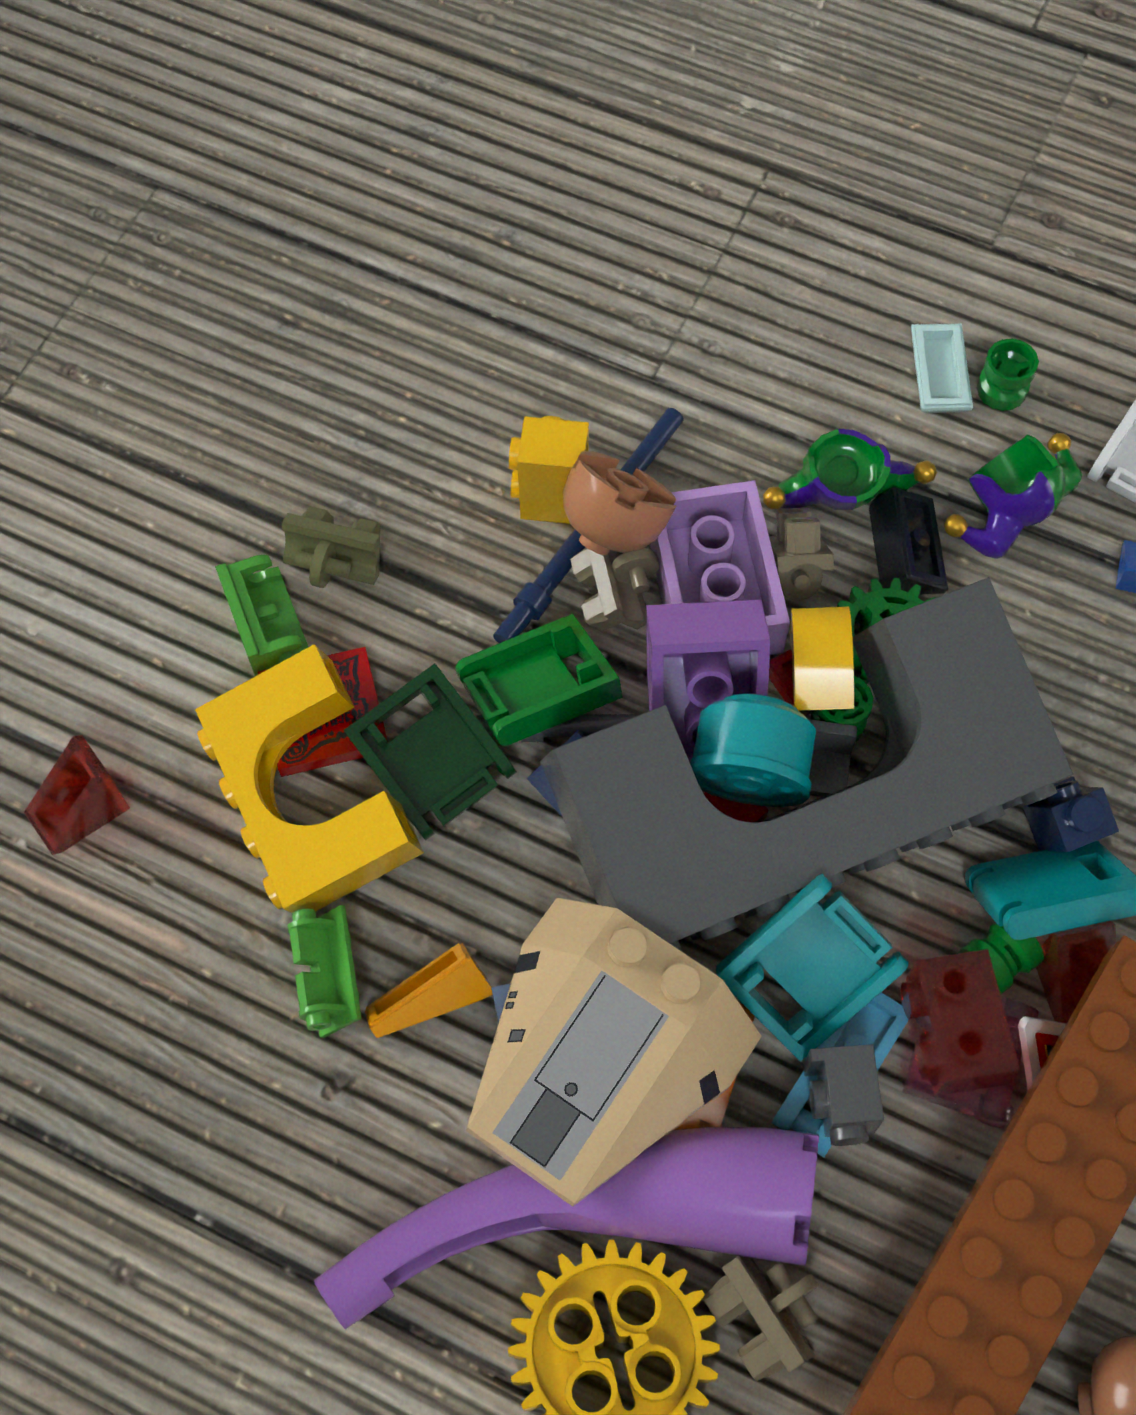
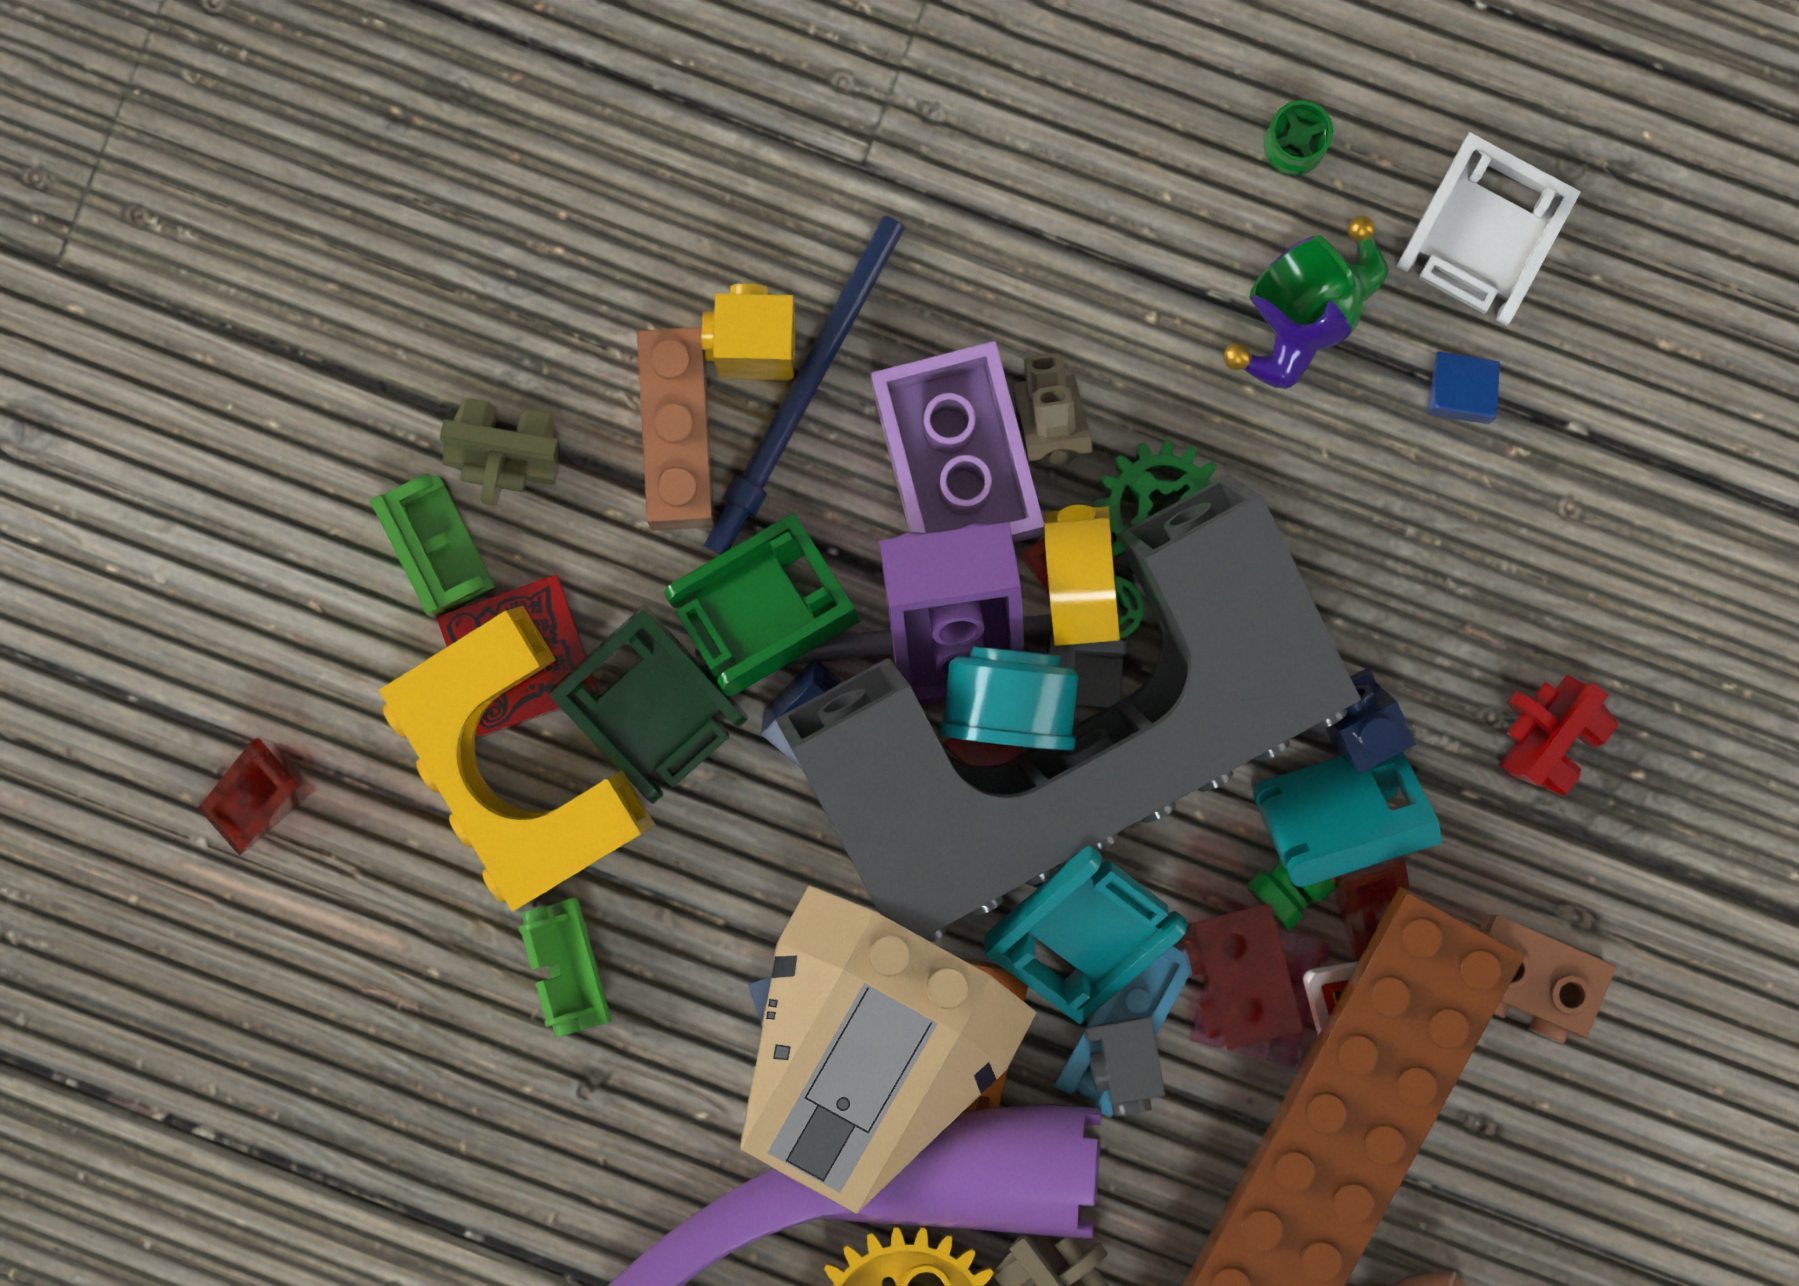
camera: 10 degrees left, 20 degrees up
(436, 989) = (683, 982): light orange slope -> none
(479, 542) = (675, 429): none -> nougat brick
(613, 506) = (835, 400): nougat cylinder -> none
(620, 586) = (841, 465): dark tan hips -> none
(846, 473) = (1104, 304): green piece -> none
(908, 541) = (1182, 378): black slope -> none
(941, 368) = (1218, 127): light aqua tile -> none

